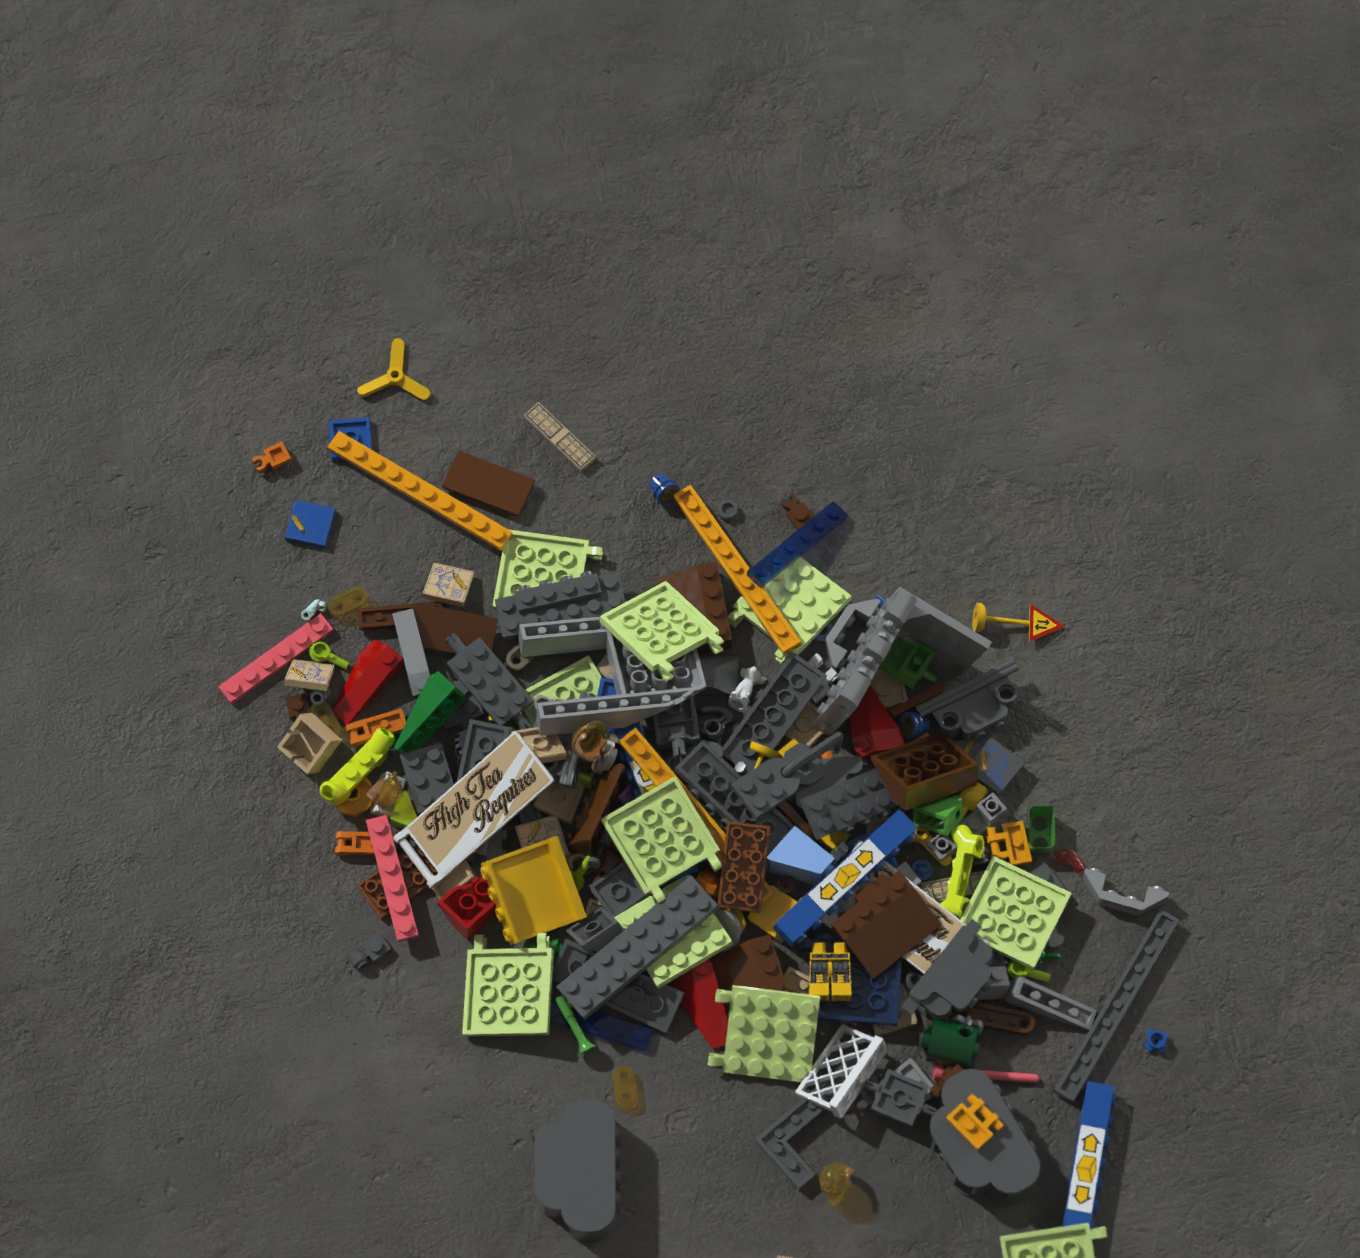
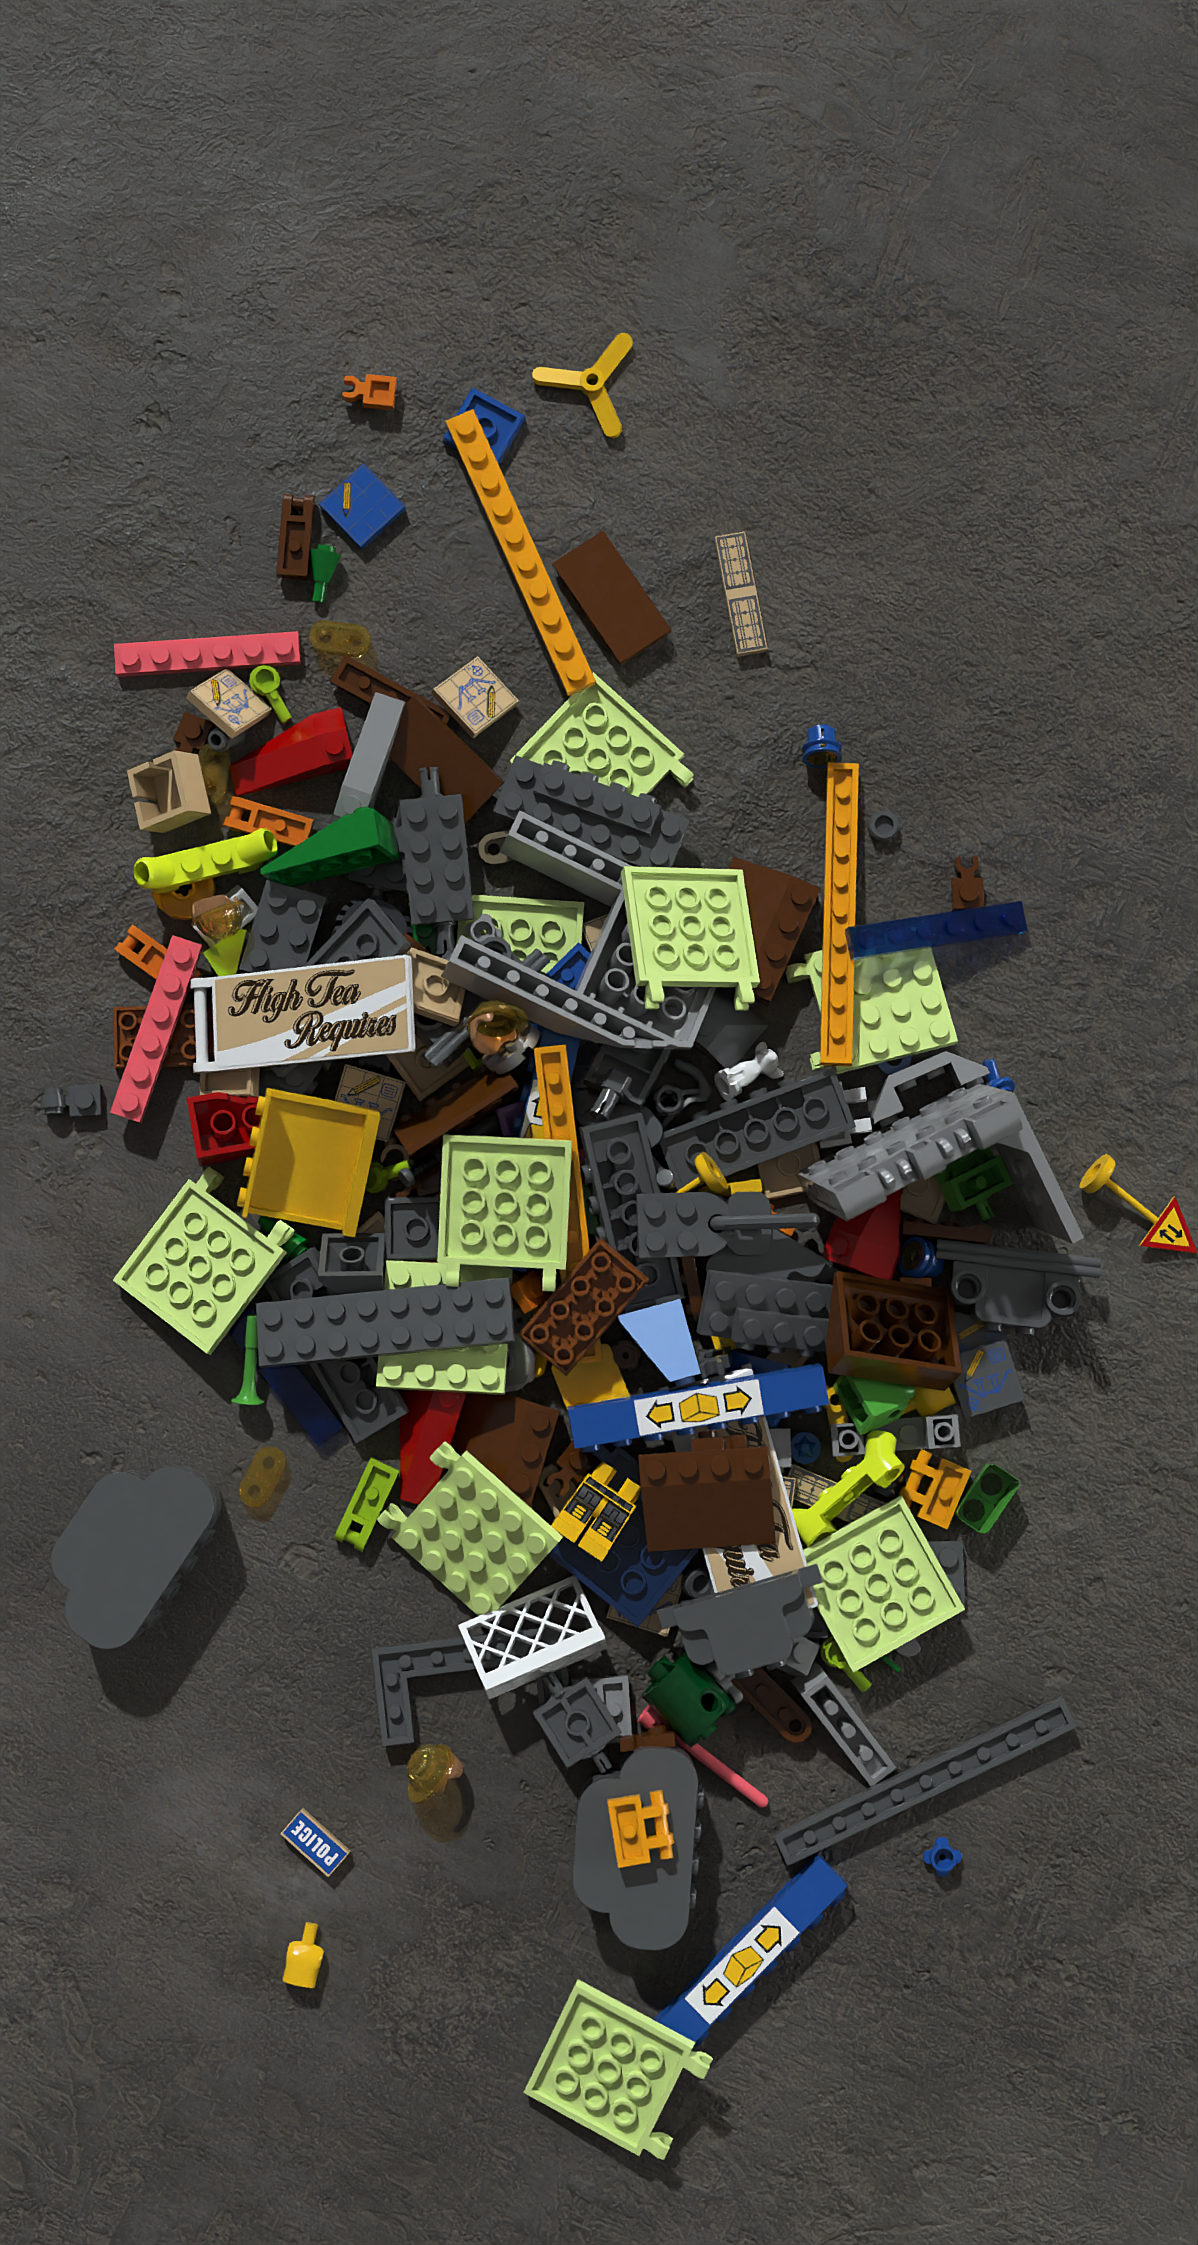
camera: 30 degrees right, 15 degrees up
(283, 563) = (295, 537): none -> reddish brown plate
(310, 567) = (324, 564): none -> green cone
(313, 608) = (291, 620): light aqua arm -> none
(695, 1062) = (367, 1503): none -> lime plate
(797, 965) = (572, 1466): none -> reddish brown plate
(1069, 857) = (997, 1554): clear red arm -> none
(1154, 896) = (1007, 1611): light grey slope -> none

